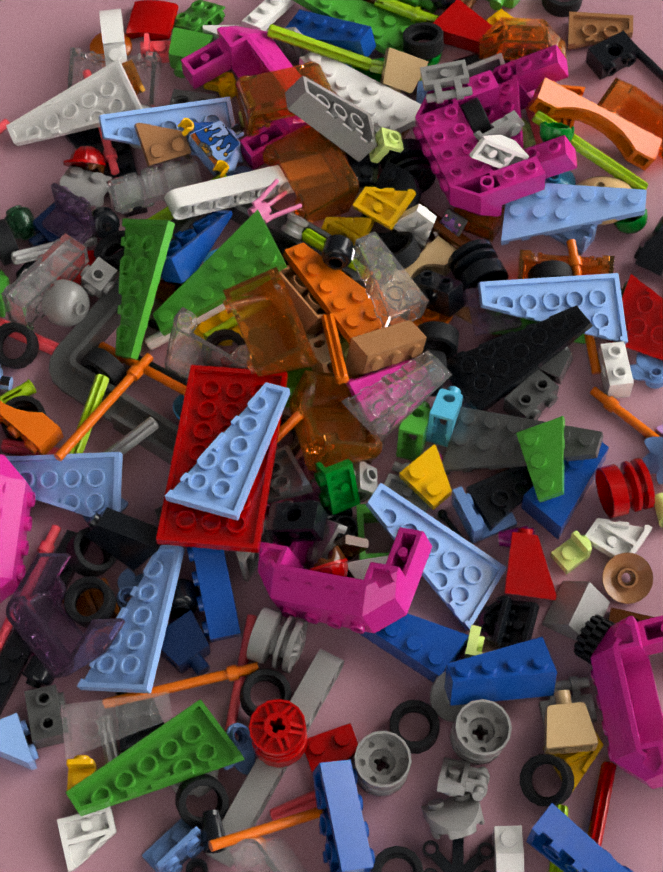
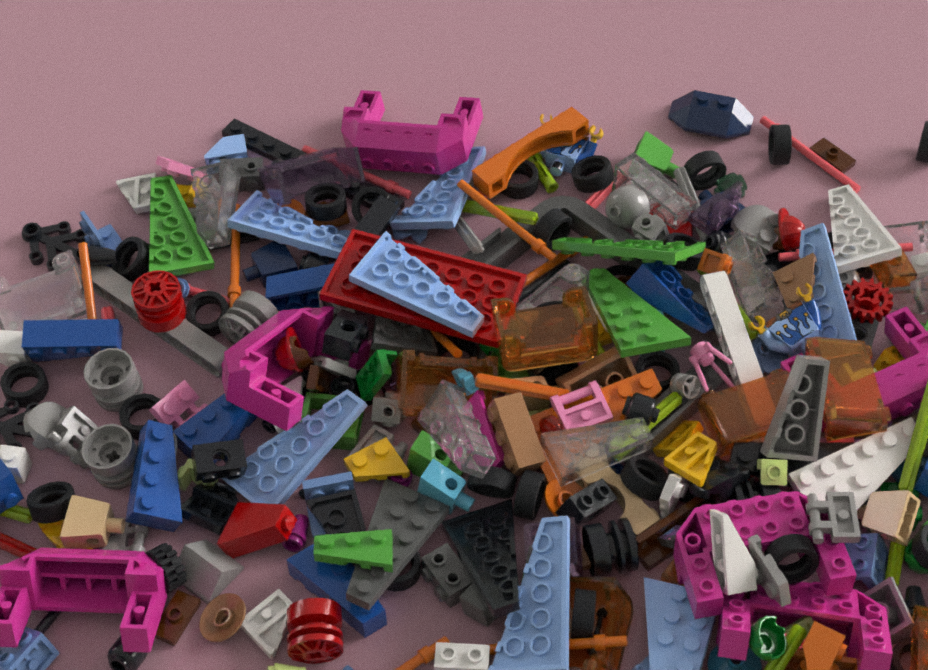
camera: 100 degrees right, 10 degrees down
(52, 790) = (174, 167): none -> bright pink plate
(145, 207) = (714, 262): none -> orange bracket
(169, 91) = (867, 300): none -> red gear
(331, 403) = (465, 380): none -> medium azure plate
(331, 746) = (147, 356): red wing -> none
(352, 294) = (585, 414): none -> bright pink plate
(372, 320) = (550, 424): none -> clear red plate
(394, 688) = (175, 403): none -> bright pink plate
(470, 614) = (230, 451): none -> black brick
(572, 552) = (268, 578): yellowish green bracket -> none

